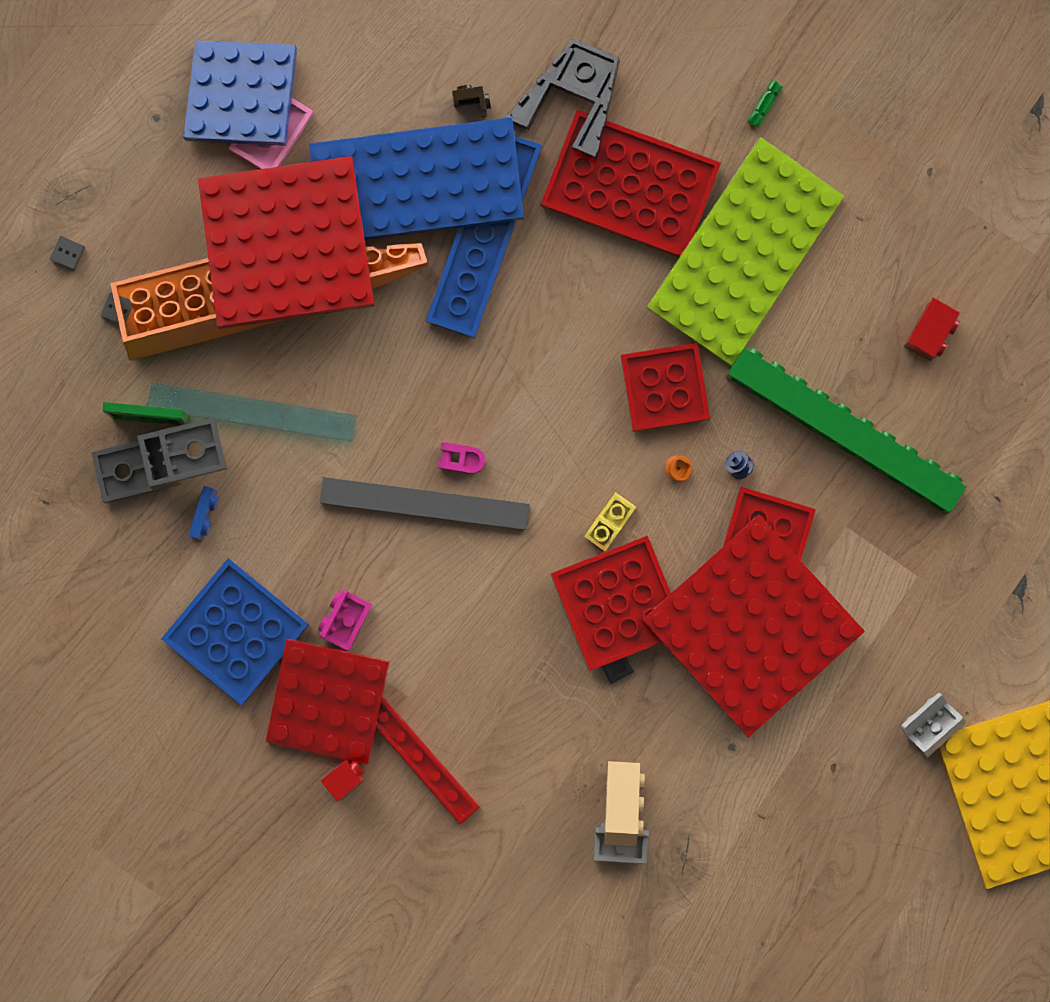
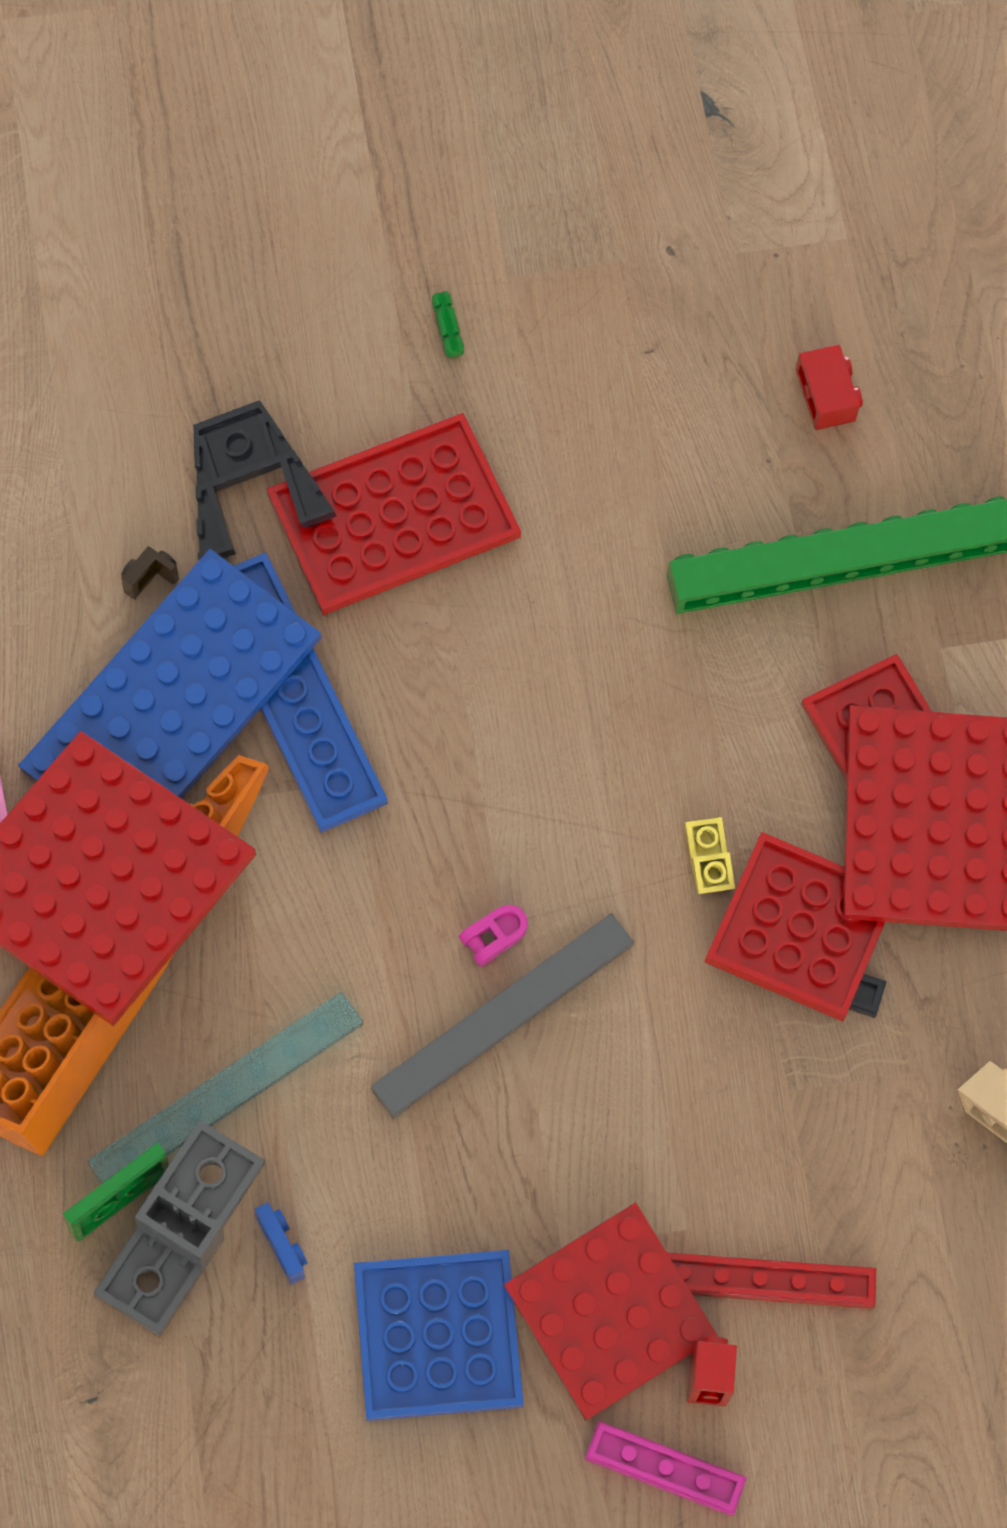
camera: 50 degrees left, 15 degrees down
(281, 801) = (665, 1468): none -> dark pink tile
(345, 619) = (543, 1210): dark pink bracket -> none
(665, 387) = (628, 674): red plate -> none
(678, 468) = (723, 740): orange tile -> none
(739, 464) = (779, 680): dark blue wheel -> none
(745, 252) = (573, 477): lime plate -> none

